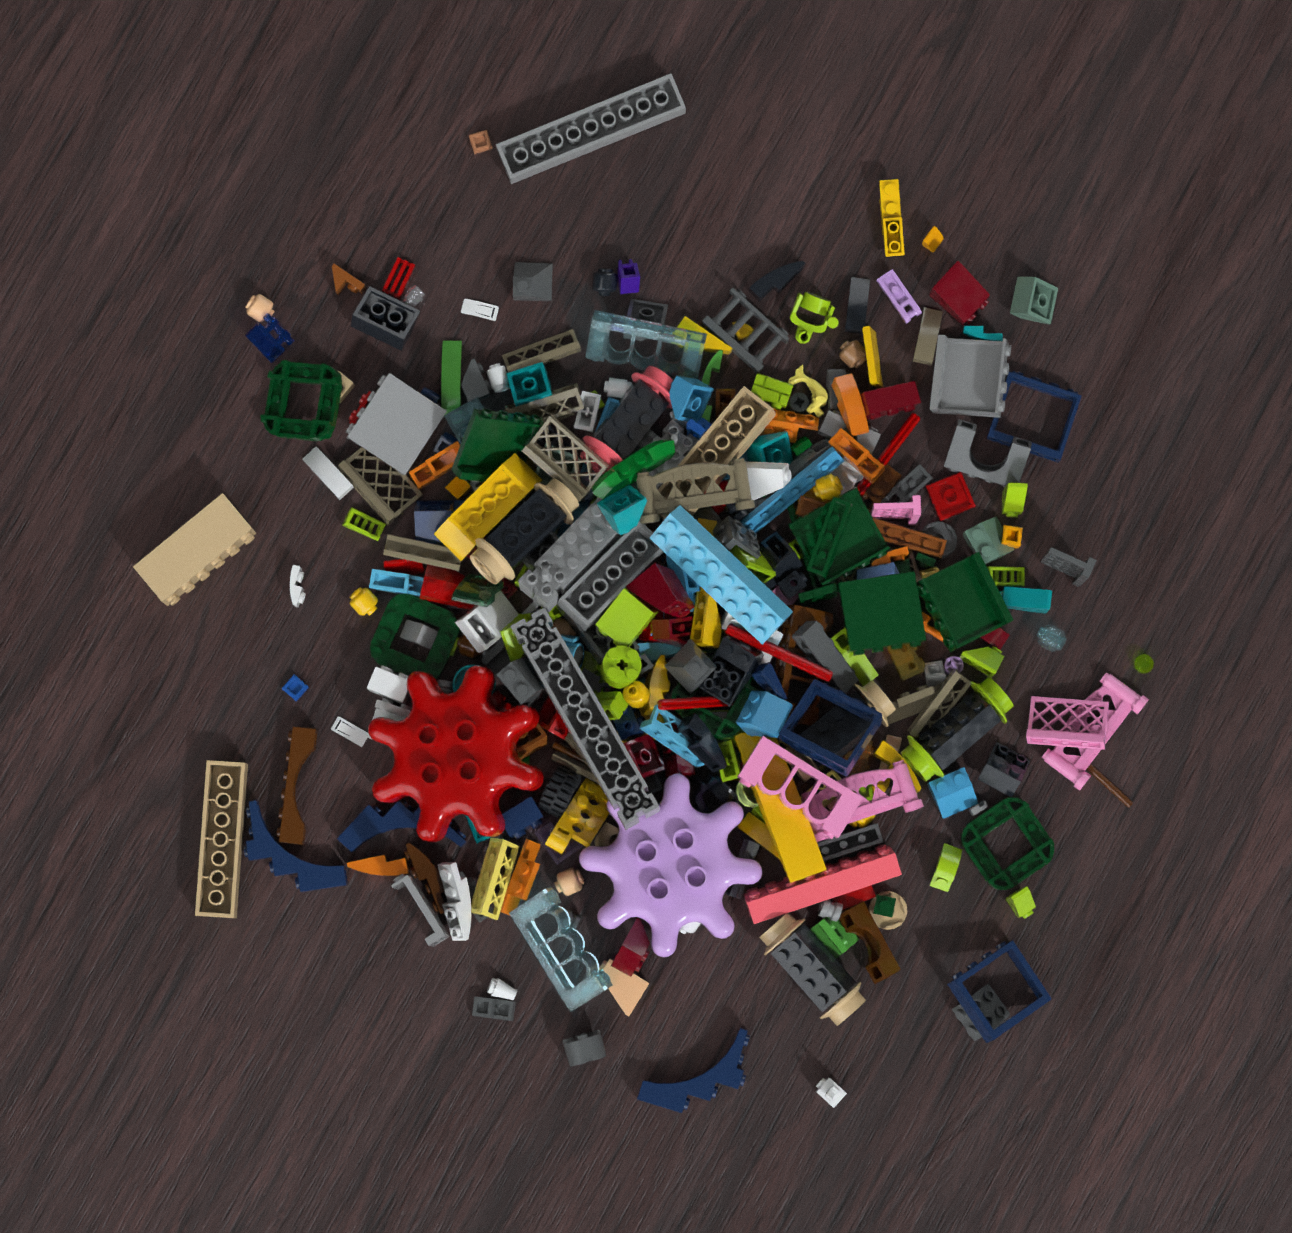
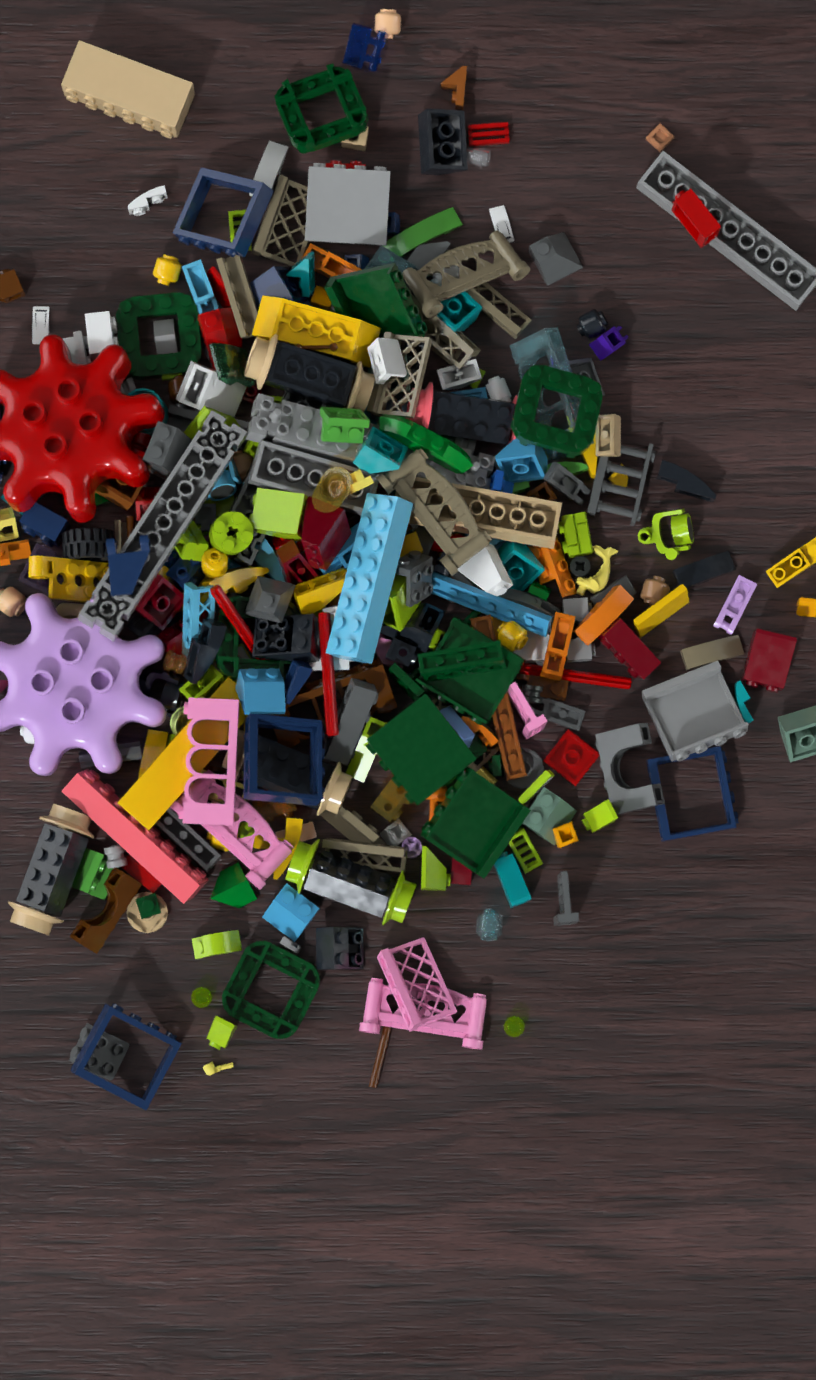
camera: 55 degrees right, 0 degrees up
(295, 687) = (53, 252): blue tile -> none
(369, 511) = (248, 225): none -> dark blue window
(430, 489) = (306, 271): none -> teal slope
(510, 396) = (431, 294): none -> dark tan piece
(511, 499) = (333, 347): none -> reddish brown hinge
(547, 461) = (386, 359): none -> white panel
(568, 148) = (695, 217): none -> red window
(583, 525) = (343, 425): none -> bright green bracket
(607, 765) = (126, 567): none -> dark blue flag
(633, 564) = (332, 489): none -> clear yellow piece
(637, 538) = (360, 481): none -> light yellow tile
(685, 366) = (549, 437): none -> dark green plate
(697, 773) = (175, 662): none -> clear orange wheel
(705, 319) = (608, 435): none -> tan slope
(725, 375) = (565, 482): none -> dark grey hinge
(883, 497) = (532, 693): none -> pearl dark grey wheel
(906, 828) = (233, 887): none -> green slope
(960, 537) = (536, 787): none -> lime tile
(982, 904) = (201, 997): none -> clear neon green plate
(1044, 929) = (210, 1068): none -> light yellow hand

